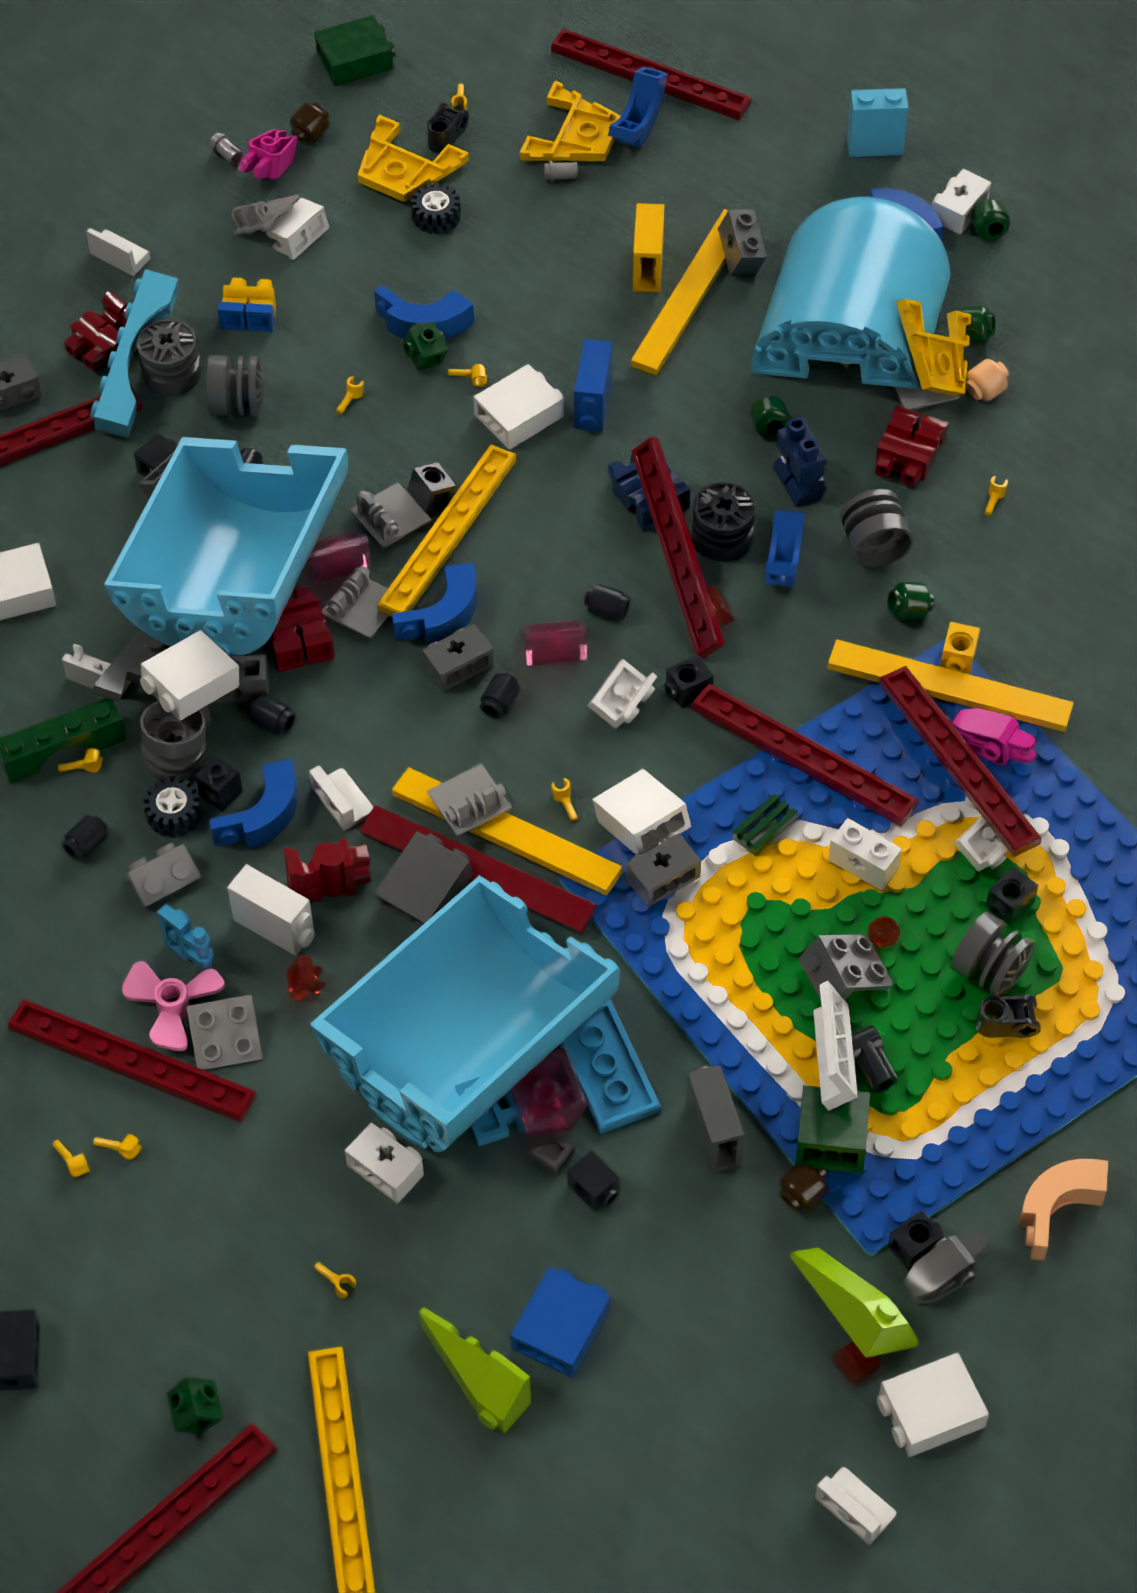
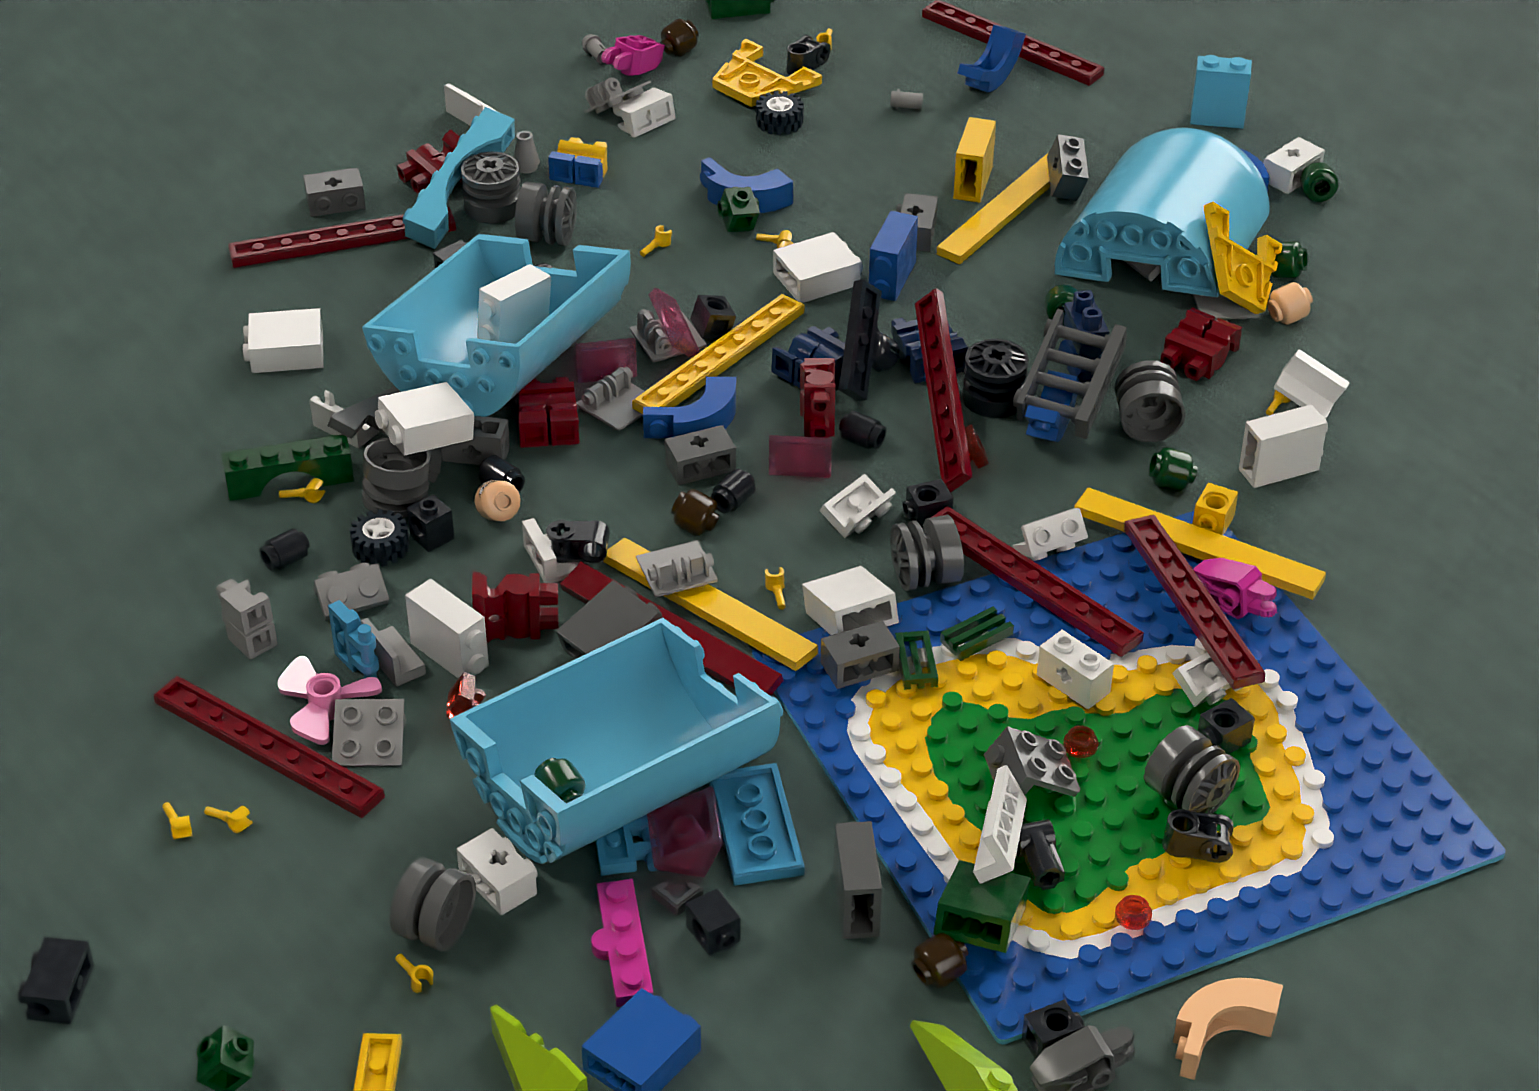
camera: 10 degrees right, 15 degrees down
(74, 930) = (247, 618): none -> light grey hips
(191, 306) = (526, 152): none -> light grey cone
(226, 940) = (396, 656): none -> light grey panel
(238, 519) = (513, 305): none -> white brick
(268, 816) = (478, 552): blue arch -> none
(276, 745) = (497, 500): none -> light nougat head
(339, 1214) = (432, 904): none -> dark grey wheel
(370, 782) = (580, 541): none -> black piece
(395, 502) = (673, 322): none -> clear pink tile
(420, 1063) = (561, 778): none -> dark green head
(469, 727) = (695, 512): none -> dark brown head
(515, 1214) = (622, 940): none -> dark pink hinge
(543, 512) = (813, 344): none -> dark blue hips
(560, 578) = (818, 397): none -> dark red hips
(582, 134) = (932, 76): yellow wing -> none
(590, 502) = (864, 342): none -> black plate
(606, 324) = (926, 209): none -> dark grey brick
(701, 743) = (927, 552): none -> dark grey wheel
(722, 885) = (917, 678): none -> dark green tile
(813, 702) = (1052, 533): none -> white bracket
(821, 531) = (1091, 392): none -> dark grey fence
(964, 1107) = (1133, 912): none -> clear red plate
(1010, 561) = (1282, 445): none -> white brick
(1023, 481) = (1310, 383): none -> white panel

